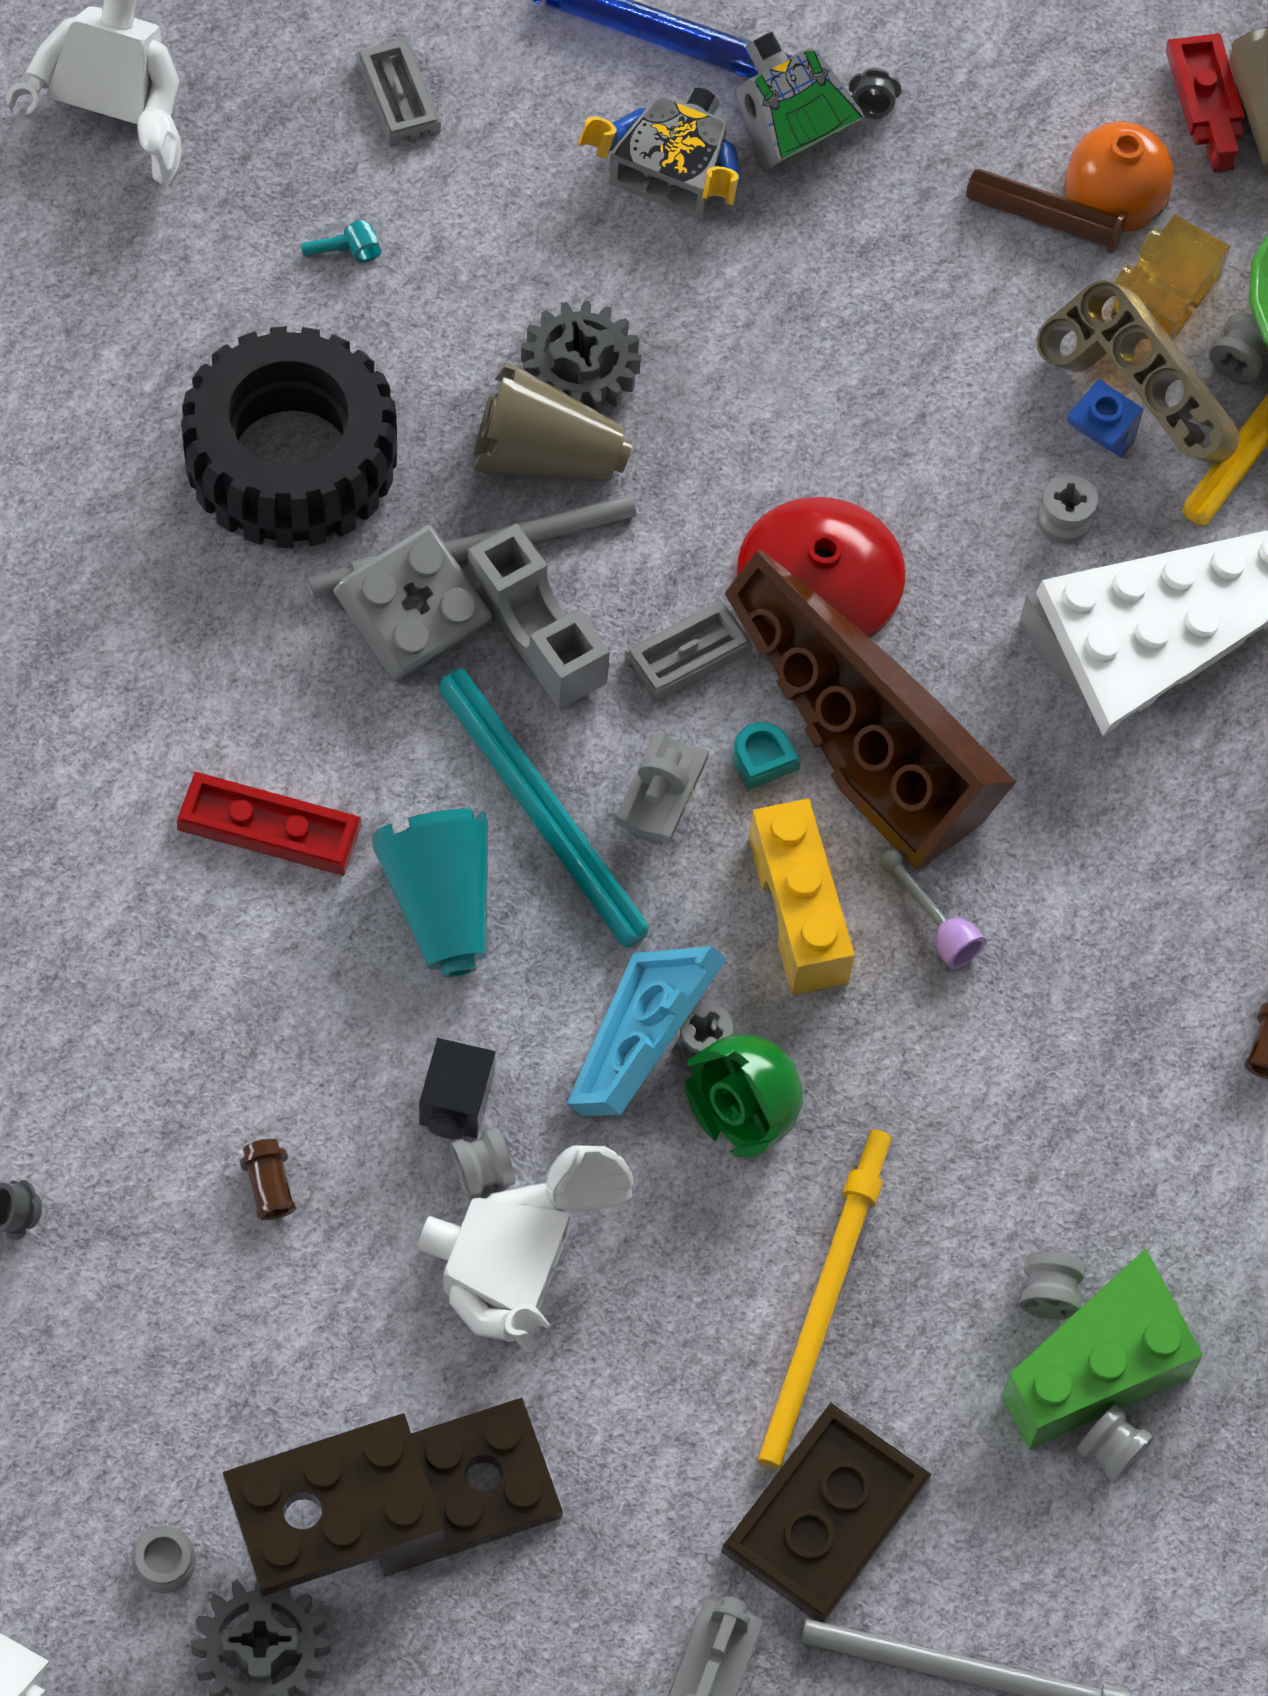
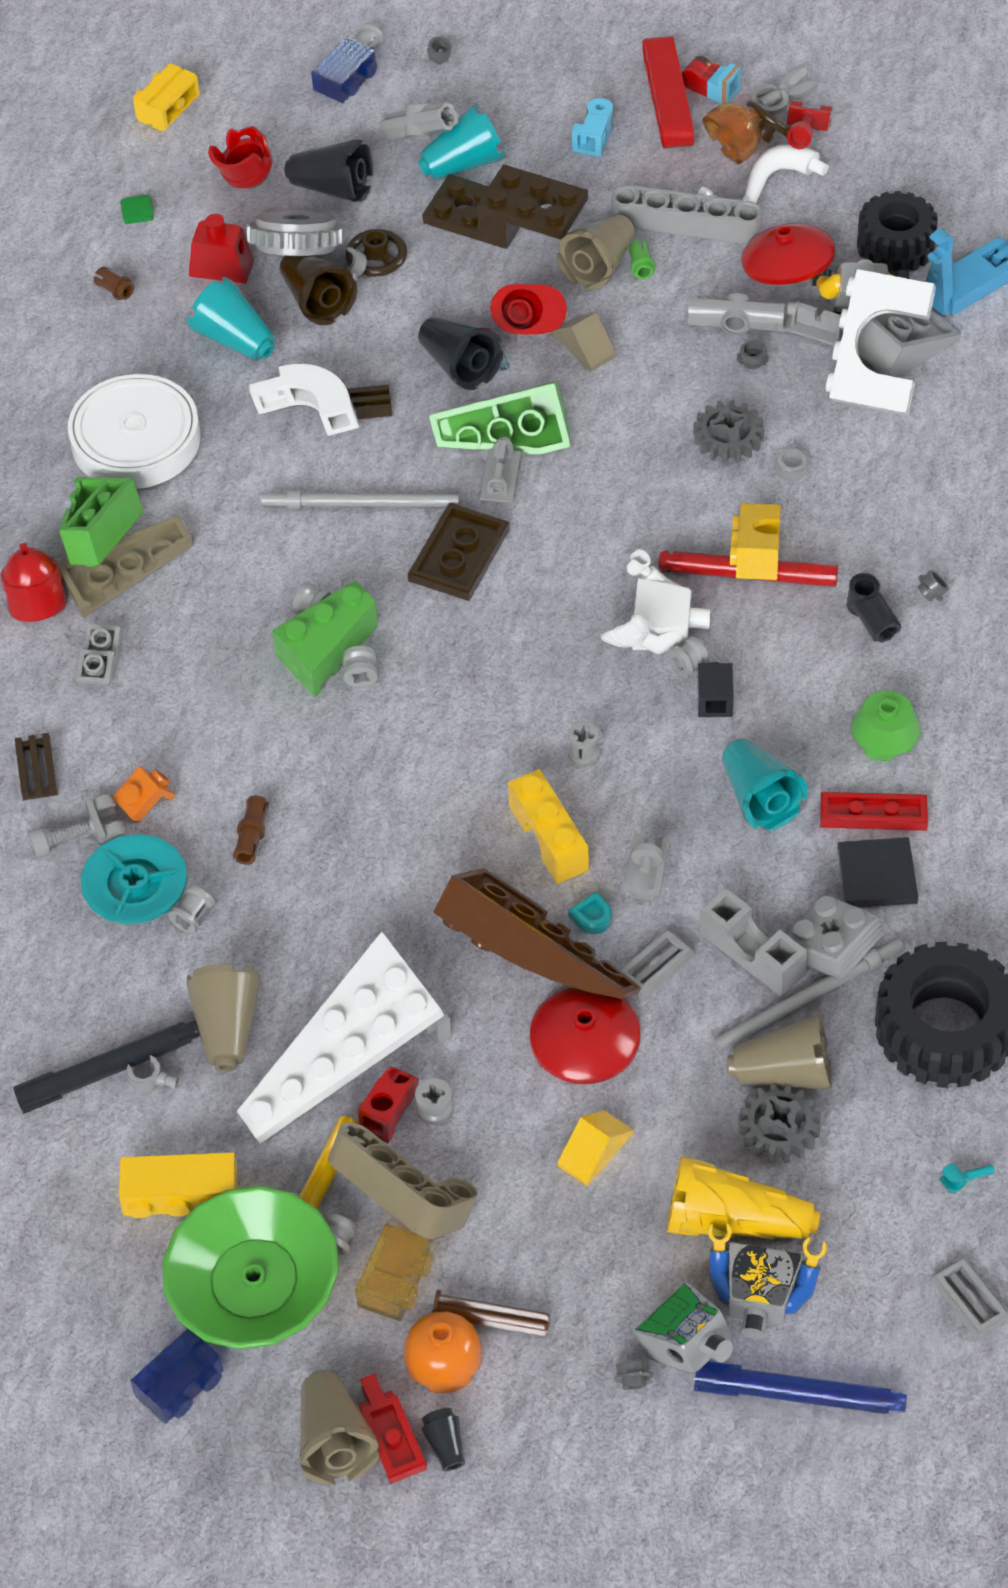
camera: 175 degrees right, 10 degrees down
(137, 1184) = (872, 608): none -> black piece
(197, 954) = (886, 725): none -> bright green cone
(268, 1178) = (807, 636): reddish brown pin -> none
(301, 715) = (877, 872): none -> black tile
(319, 1291) = (756, 541): none -> yellow arch
(319, 1333) = (720, 567): none -> red piece
(391, 1495) = (685, 494): dark brown bracket -> none
(544, 808) = (717, 853): teal axle -> none
(640, 1024) = (621, 738): medium azure wing -> none
(706, 252) = (750, 1208): none -> yellow cone
(745, 1092) = (549, 715): green cylinder -> none
(844, 401) = (593, 1145): none -> yellow slope
(861, 1193) = (476, 693): yellow bar -> none
(956, 938) = (451, 831): lavender hinge -> none
(1107, 418) = (420, 1147): blue bracket -> none
(1135, 516) = (387, 1102): none -> red leg
(1138, 76) = (444, 1436): none -> black cone

